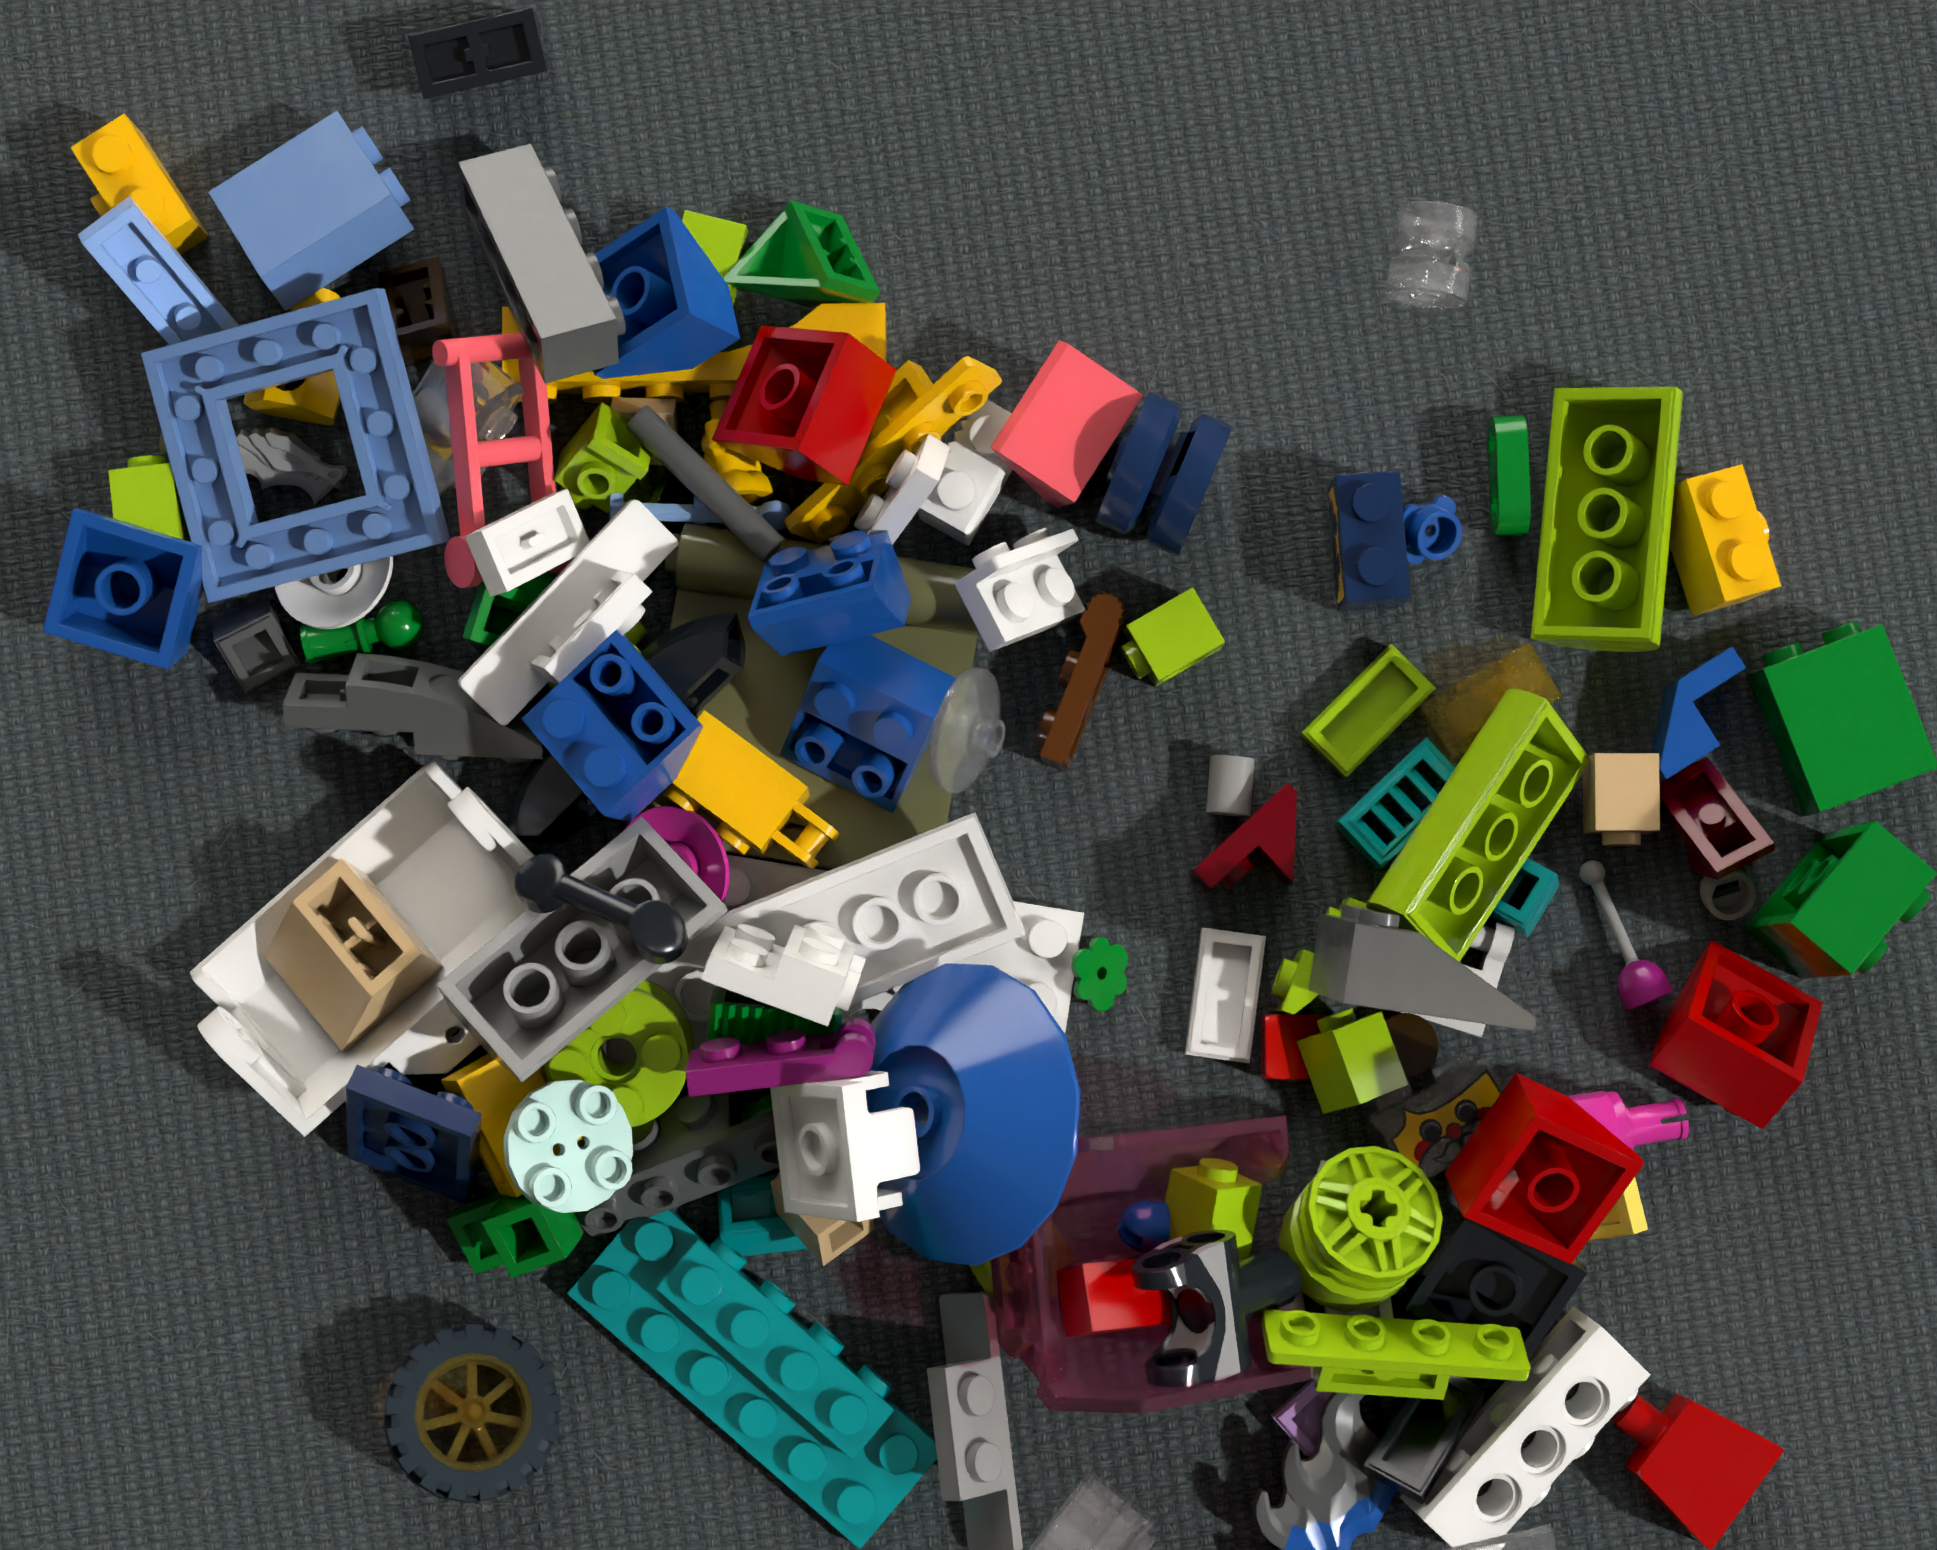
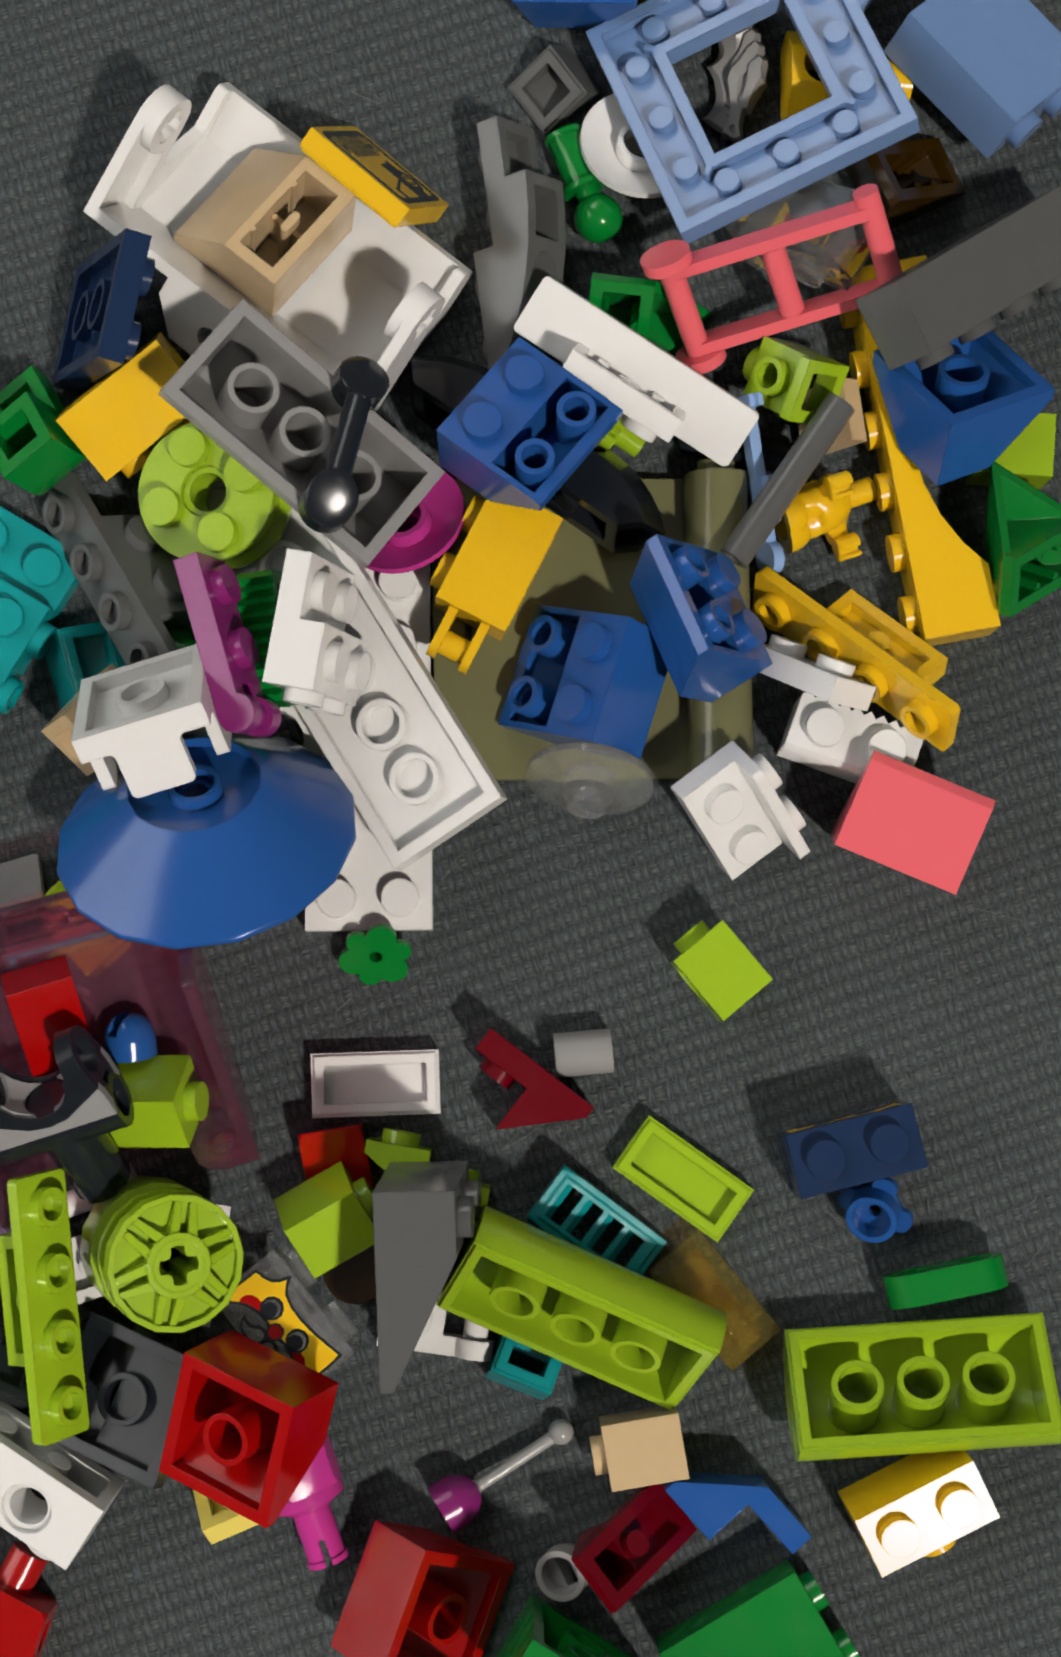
camera: 80 degrees right, 0 degrees up
(319, 839) = (373, 175): none -> yellow tile
(527, 542) = (696, 316): white plate -> none
(576, 1176) = (81, 471): light aqua plate -> none
(805, 402) = (884, 562): red slope -> none
(1083, 678) = (661, 889): reddish brown hinge -> none
(1162, 473) = (880, 934): dark blue wheel -> none

